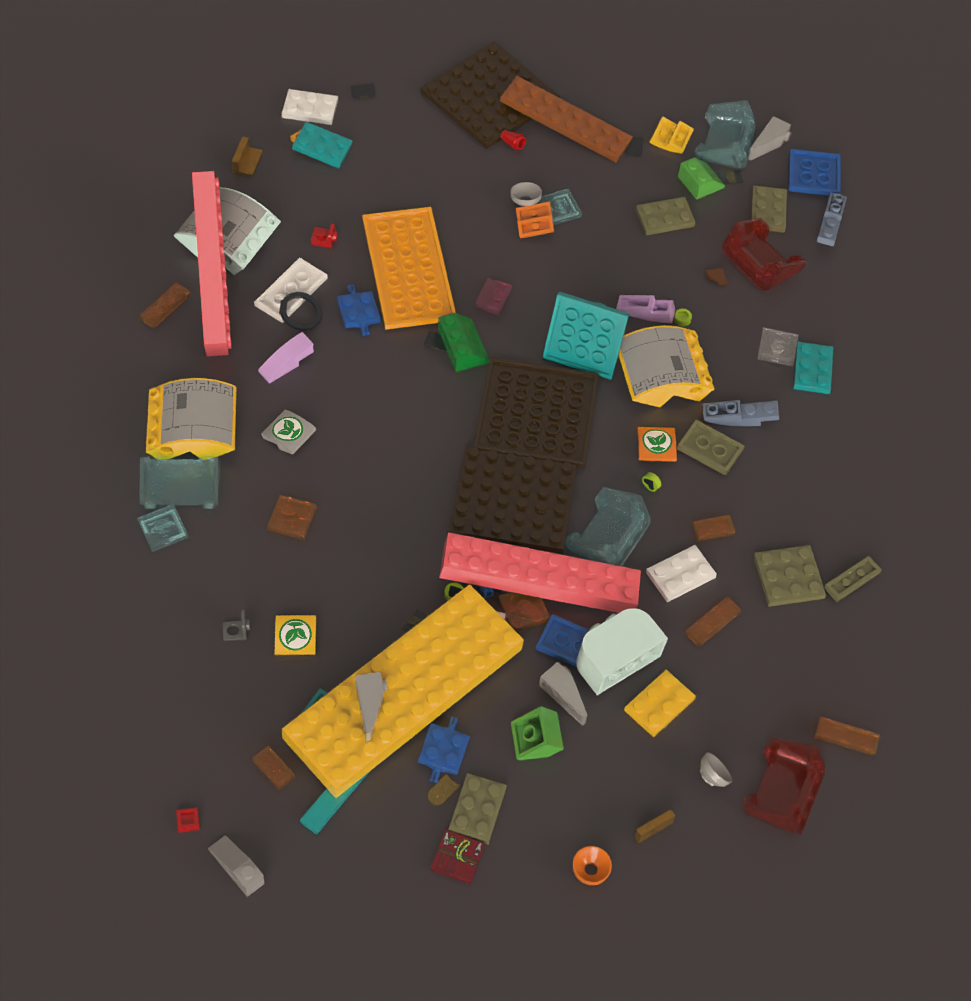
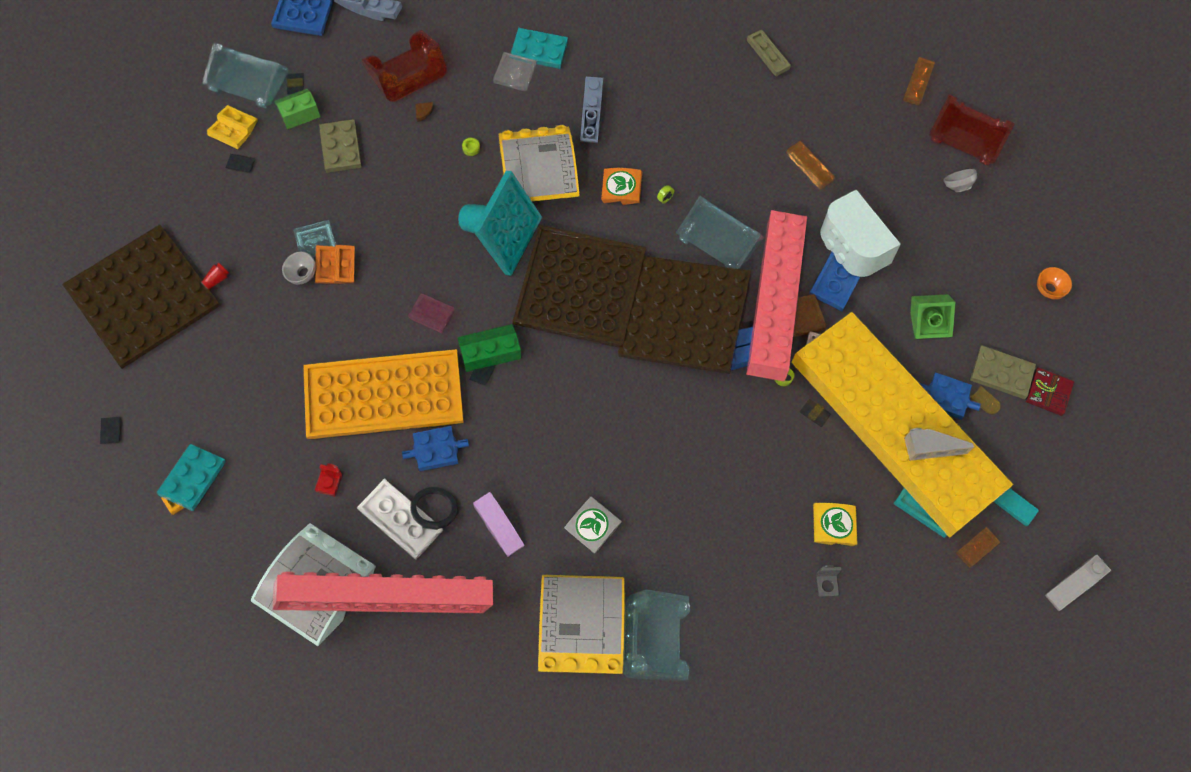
camera: 85 degrees left, 10 degrees up
(162, 528) = (708, 658): clear light blue tile -> none
(164, 305) = (408, 659): clear orange plate -> none
(187, 819) = (1033, 629): red tile -> none
(246, 158) = (198, 564): pearl gold panel -> none
(292, 517) = (699, 523): clear orange plate -> none
(310, 106) = (125, 490): white plate -> none
(562, 688) = (886, 289): light grey slope -> none
(566, 119) = (195, 221): dark orange plate -> none
(647, 308) = (459, 175): lavender slope -> none
(654, 826) = (1012, 232): pearl gold tile -> none
(659, 703) = (895, 215): yellow plate -> none
(681, 573) = (761, 184): white plate -> none
(710, 447) = (627, 141): olive plate -> none
(713, 528) = (716, 150): clear orange plate -> none
(770, 205) = (341, 55): olive plate -> none
(771, 138) = (249, 36): light grey slope -> none
(789, 575) = (763, 100): olive plate -> none

